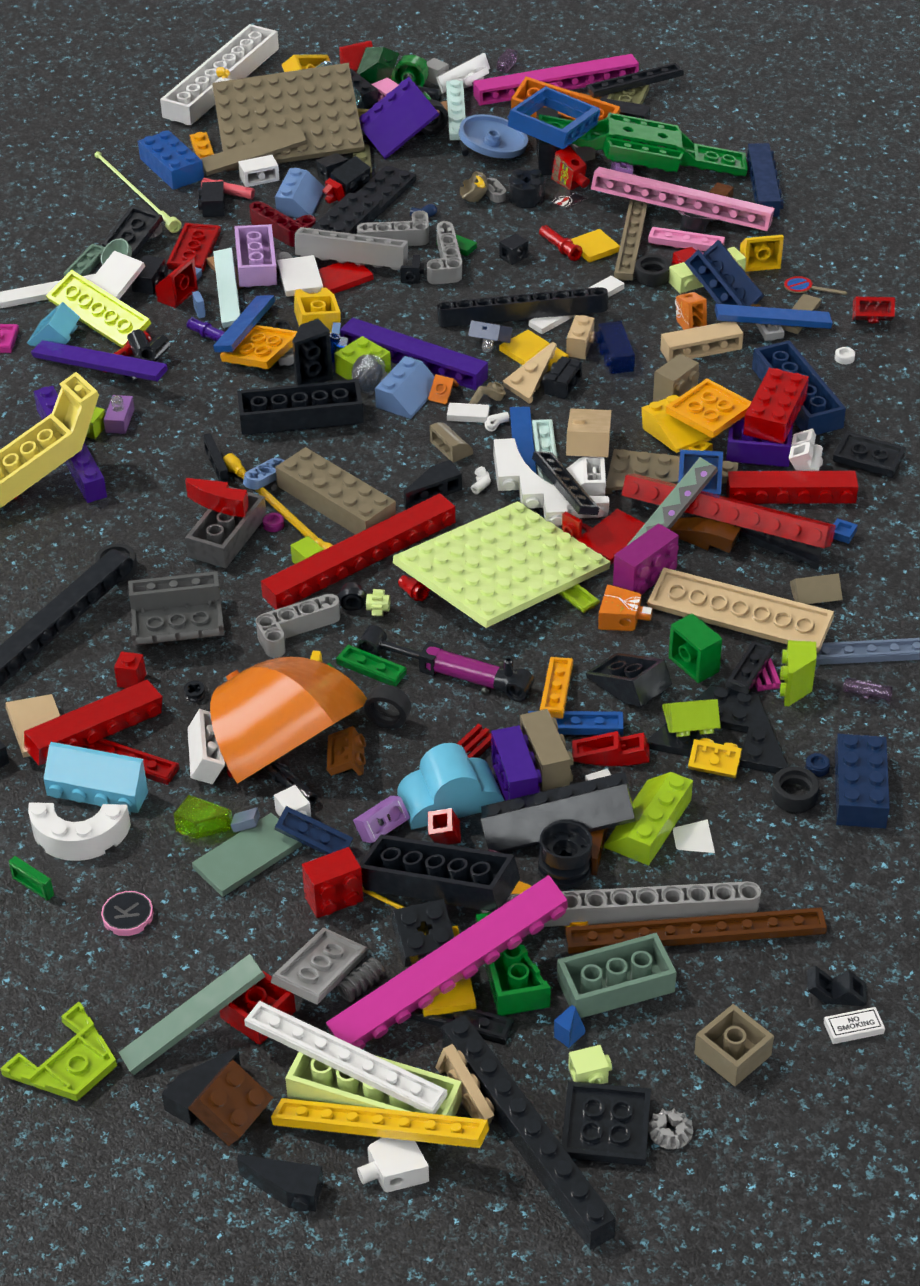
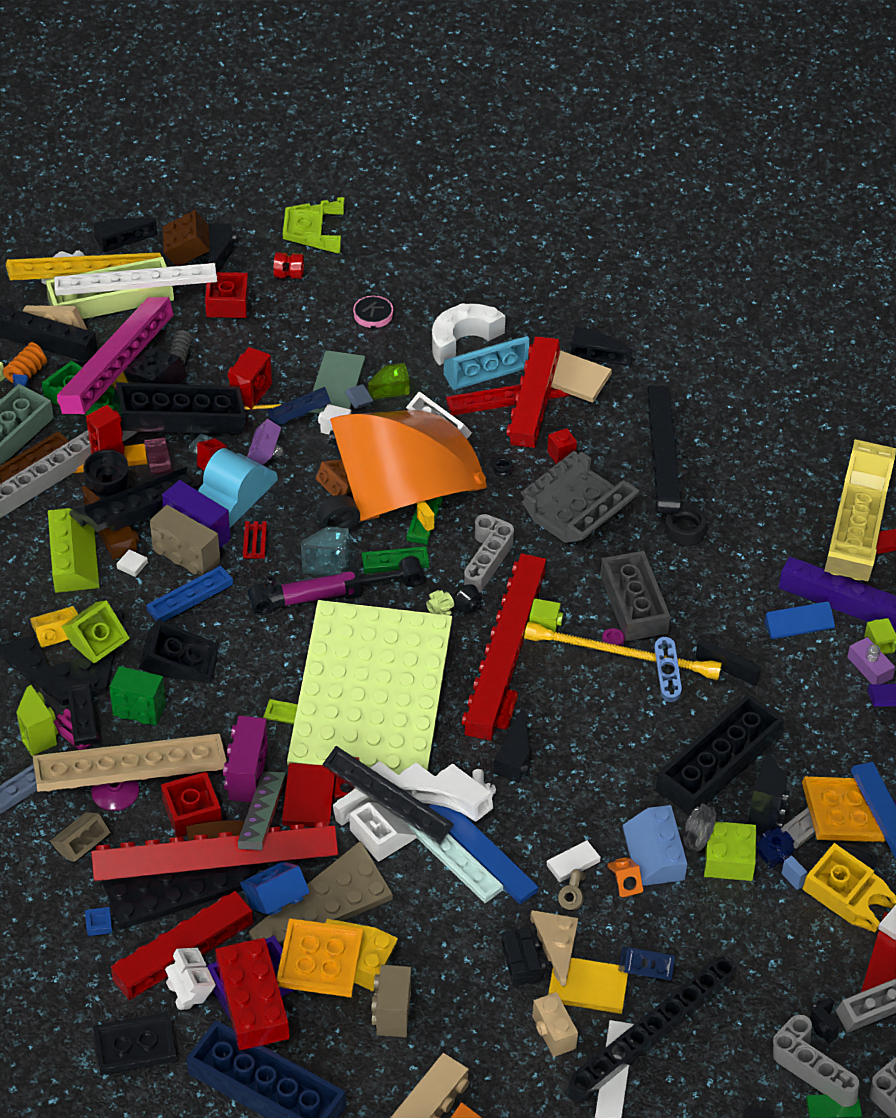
camera: 140 degrees right, 5 degrees up
(31, 878) = (454, 292): green tile -> none
(127, 464) = (799, 620): none -> blue slope
(151, 1005) = (296, 265): none -> red wheel
(191, 1014) = (254, 262): sand green tile -> none
(218, 496) = (654, 586): red slope -> none
(319, 965) = (208, 331): light grey tile -> none
(333, 491) = (587, 685): dark tan brick -> none
(430, 678) = (325, 551): none -> clear light blue slope
(439, 360) = (697, 896): dark purple brick -> none
(449, 442) = (551, 809): dark tan brick -> none
(494, 420) = (537, 862): white arm -> none
(540, 1047) = (26, 362): none -> orange piece
(541, 859) = (105, 430): none -> red brick
(557, 686) = (229, 612): light orange tile -> none
(588, 433) = (418, 868): tan brick -> none
(611, 750) = (142, 587): red slope -> none
(615, 347) = (507, 1036): clear blue brick -> none
(621, 610) = (229, 707): orange torso -> none
(694, 837) = (31, 564): white sticker -> none
(715, 557) = (190, 802): none -> red brick

